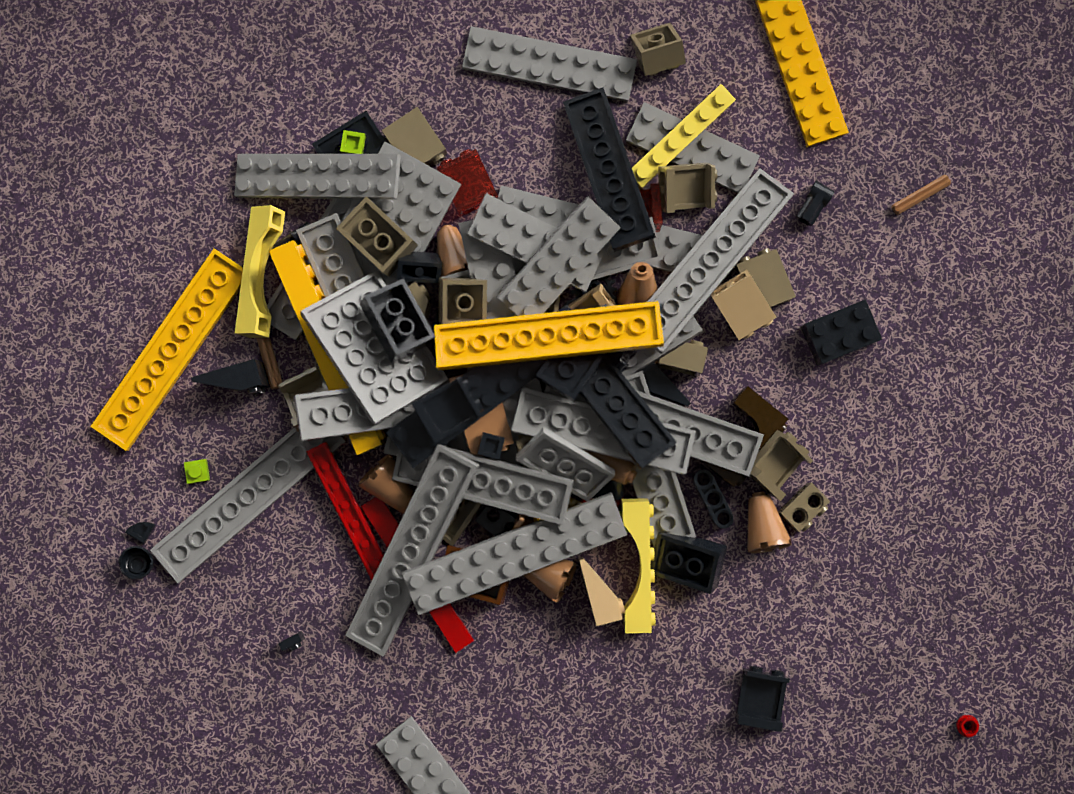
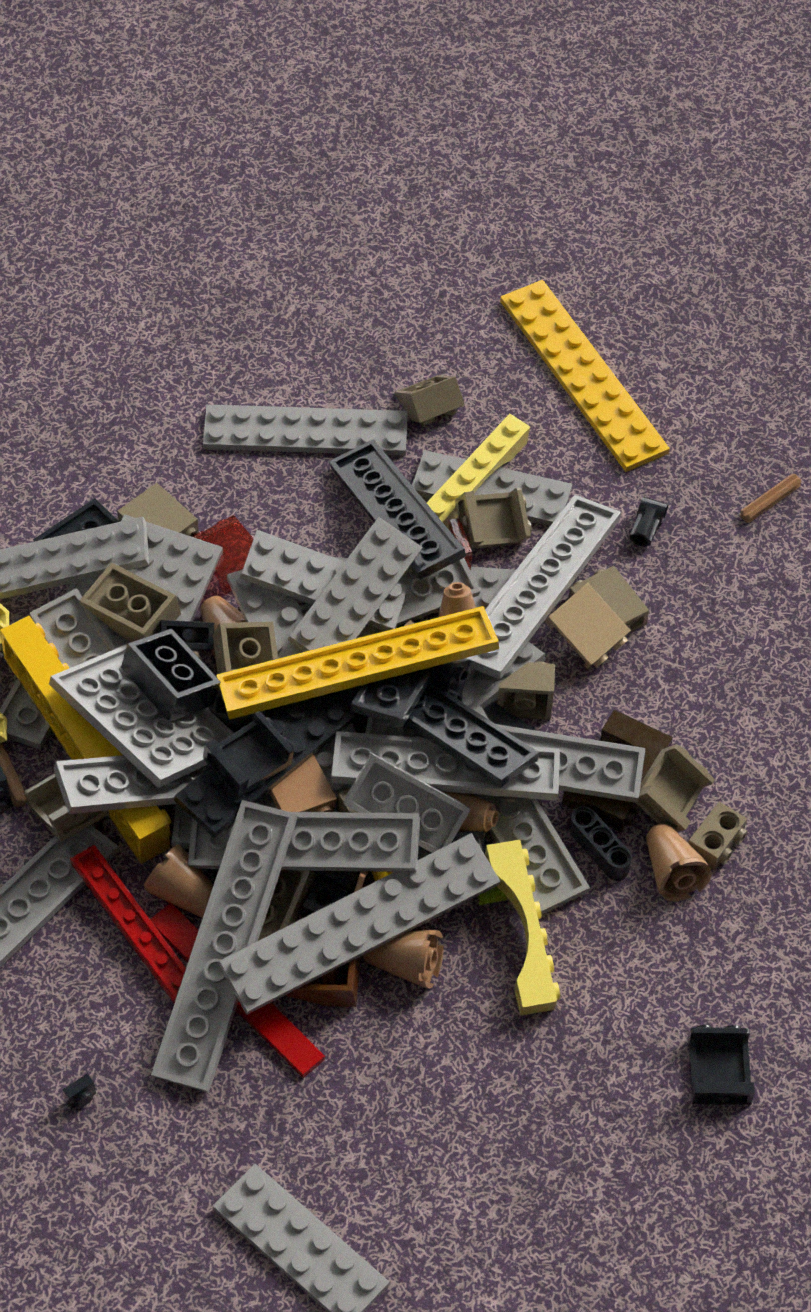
camera: 15 degrees left, 30 degrees down
(352, 142) = (83, 522): lime plate -> none
(491, 445) = (308, 797): black plate -> none
(603, 601) = (481, 965): tan slope -> none
(689, 561) = (586, 913): black slope -> none
(841, 332) = (713, 643): black brick -> none

